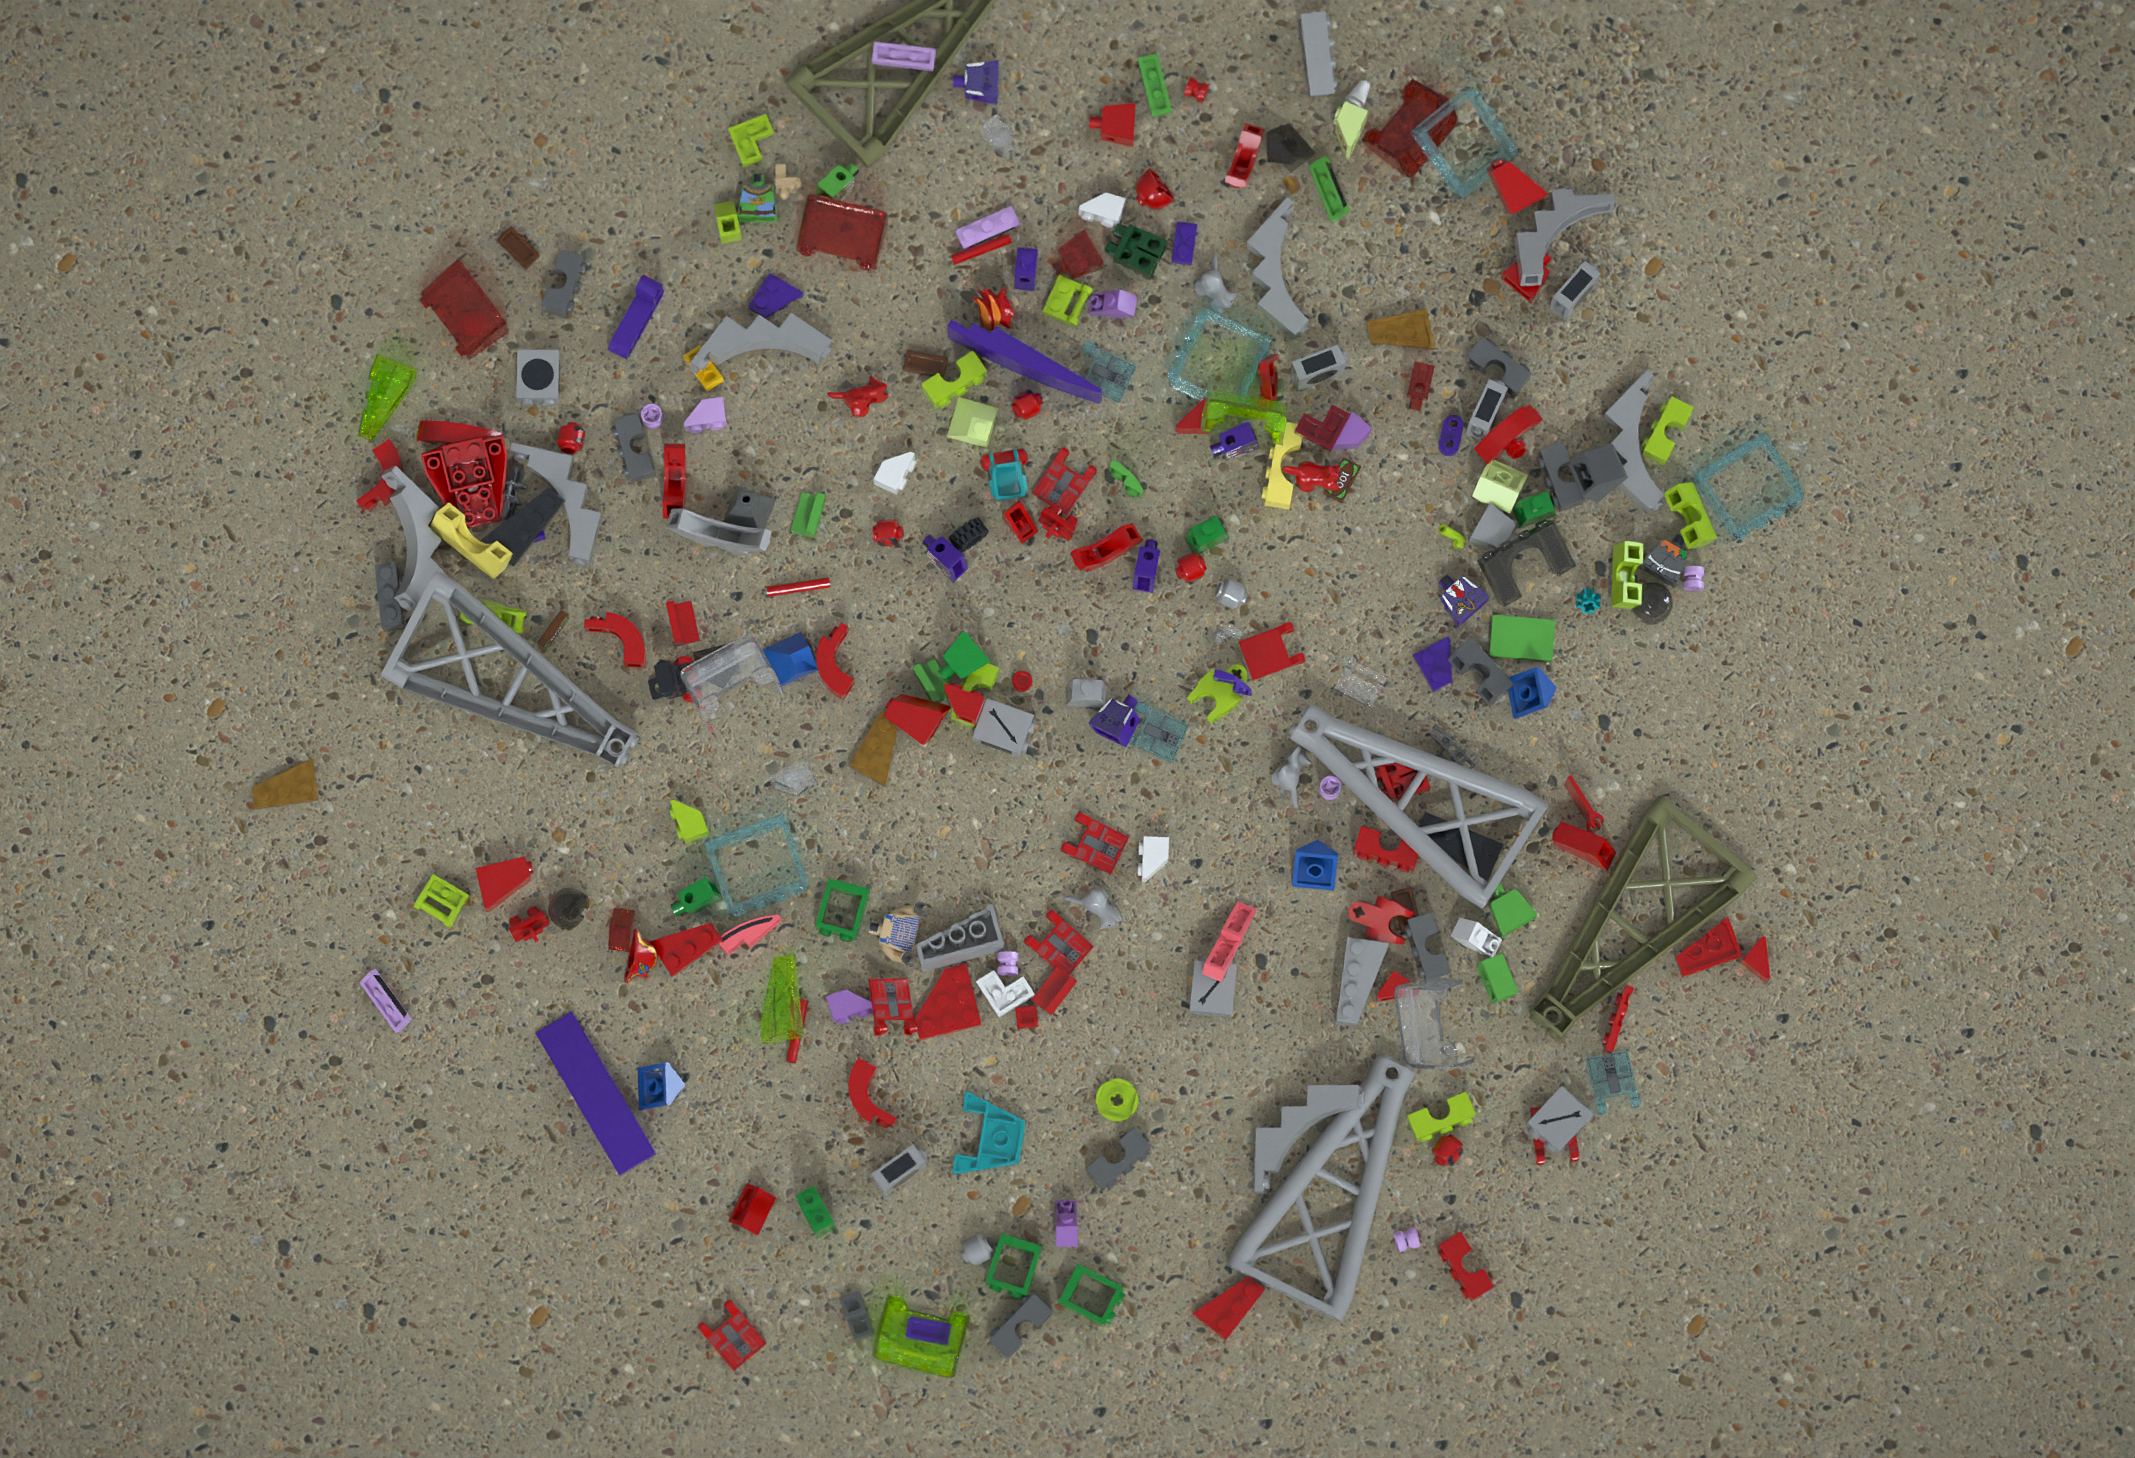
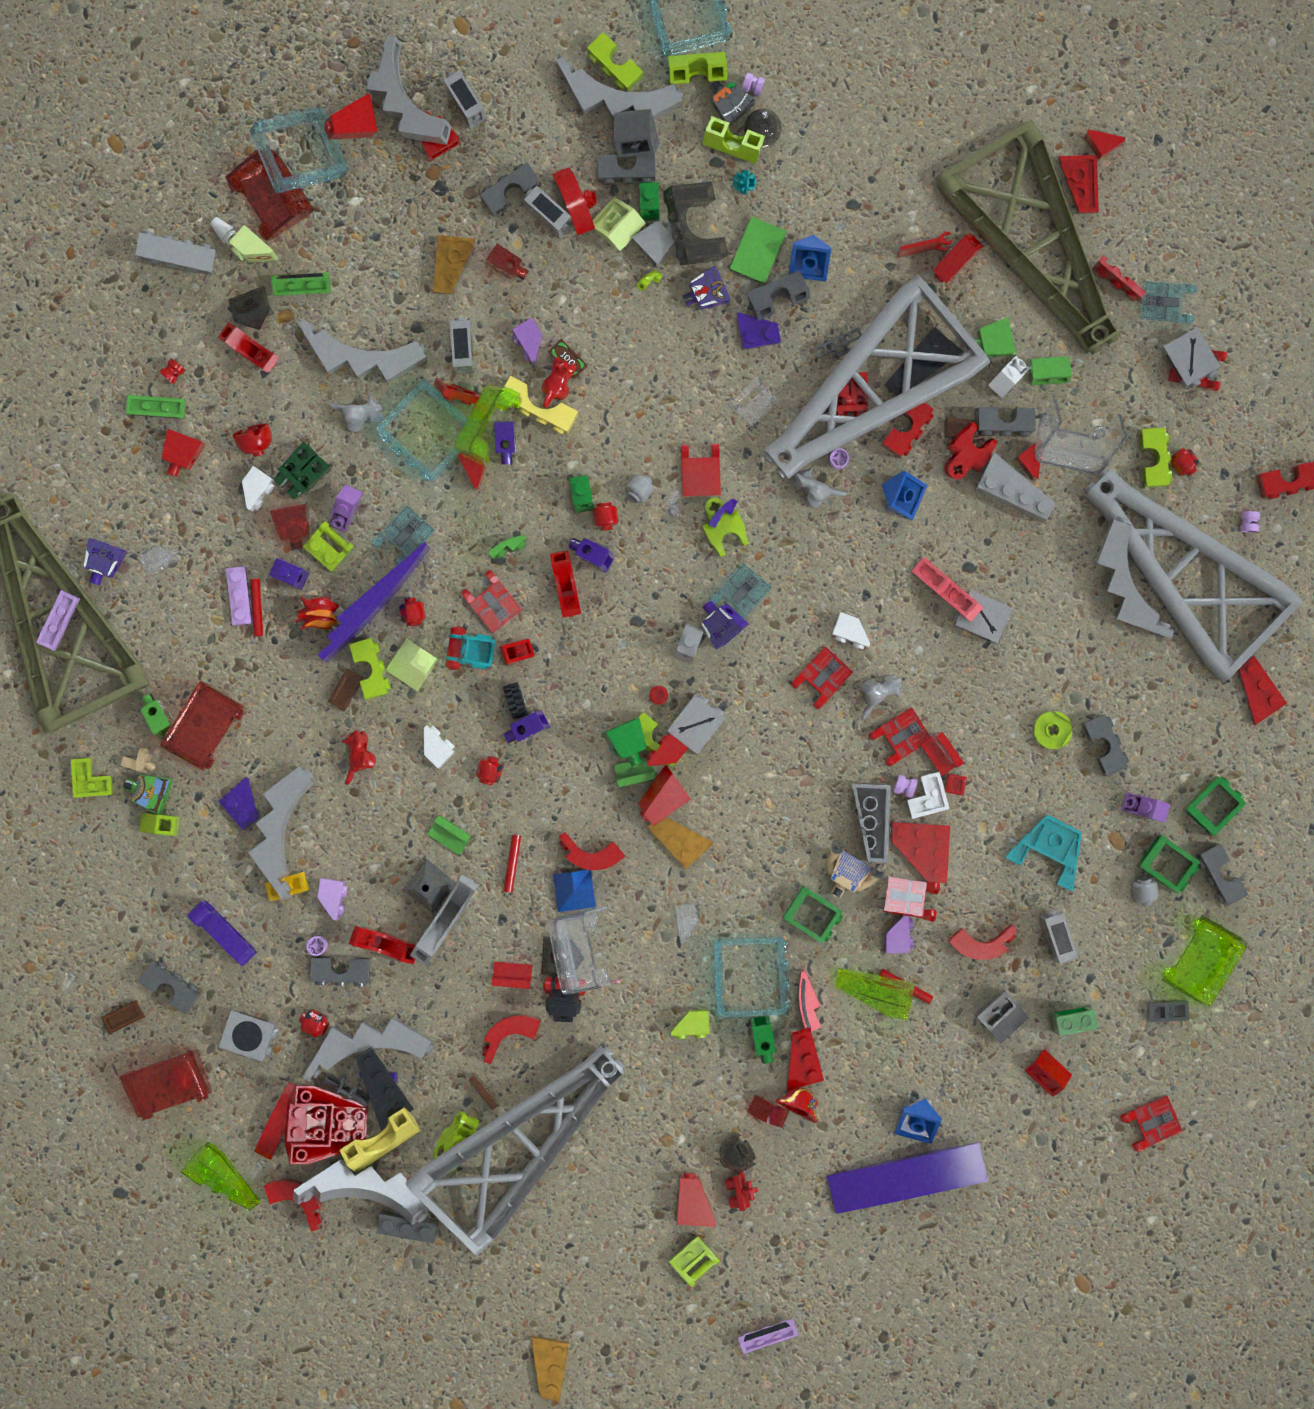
camera: 70 degrees left, 10 degrees up
(796, 1139) = (1001, 1016): none -> dark grey slope
(928, 1331) = (1201, 954): dark purple tile -> none
(1057, 525) = (529, 621): red hips -> none
(1184, 243) = (309, 427): dark purple plate -> none
(1323, 433) = (524, 359): dark red plate -> none
(1451, 434) = (557, 251): dark purple plate -> none

